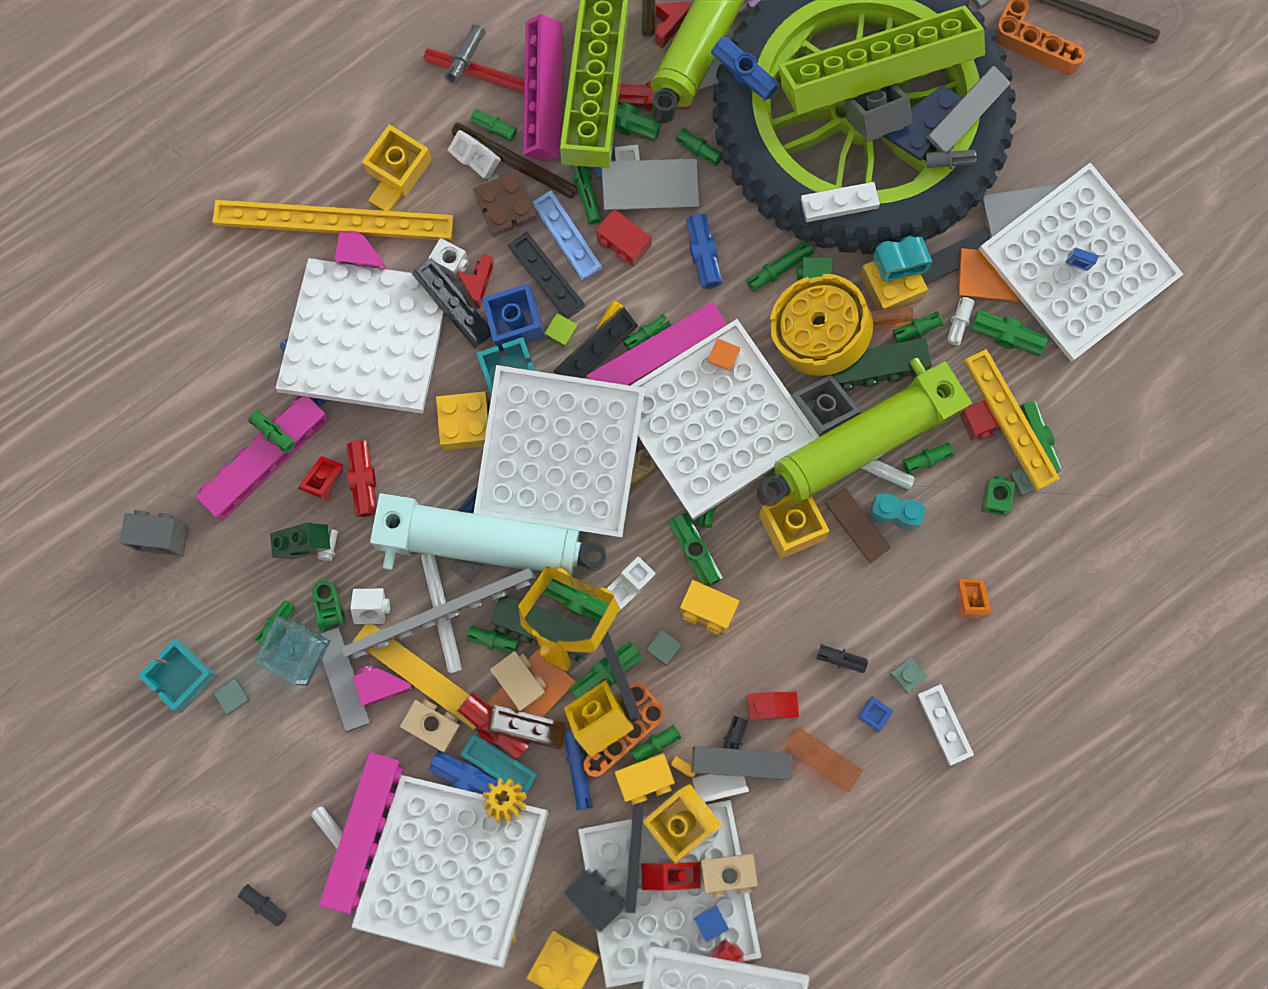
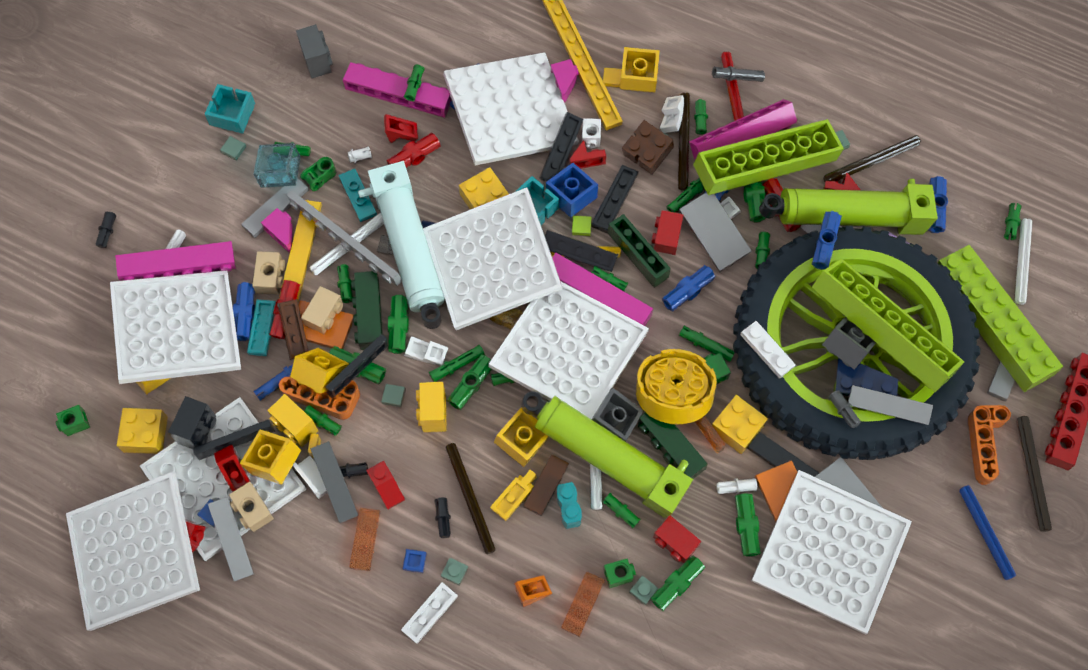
camera: 60 degrees right, 10 degrees down
(300, 541) = (351, 134): dark green brick -> none
(369, 606) = (329, 196): white brick -> none
(372, 572) = (352, 184): none -> teal plate
(500, 793) = (234, 335): yellow gear -> none
(557, 652) = (371, 335): yellow piece -> none
(567, 236) = (651, 197): light blue tile -> none
(632, 281) = (639, 250): none -> dark green brick
(660, 527) = (450, 367): none -> green pin
(723, 355) = (616, 330): orange tile -> none
(753, 914) = (230, 539): none -> light grey tile
(832, 617) = (470, 498): none -> dark brown axle
(854, 567) = (513, 495): none -> yellow hinge
(902, 258) = (754, 415): teal brick -> none
(917, 327) = (715, 458): green pin -> none
(1011, 420) = (678, 552): yellow tile -> none
(1011, 552) = (582, 604): none -> clear orange tile
(1081, 259) = (830, 546): blue tile -> none
(1131, 95) = (987, 532): none -> blue axle

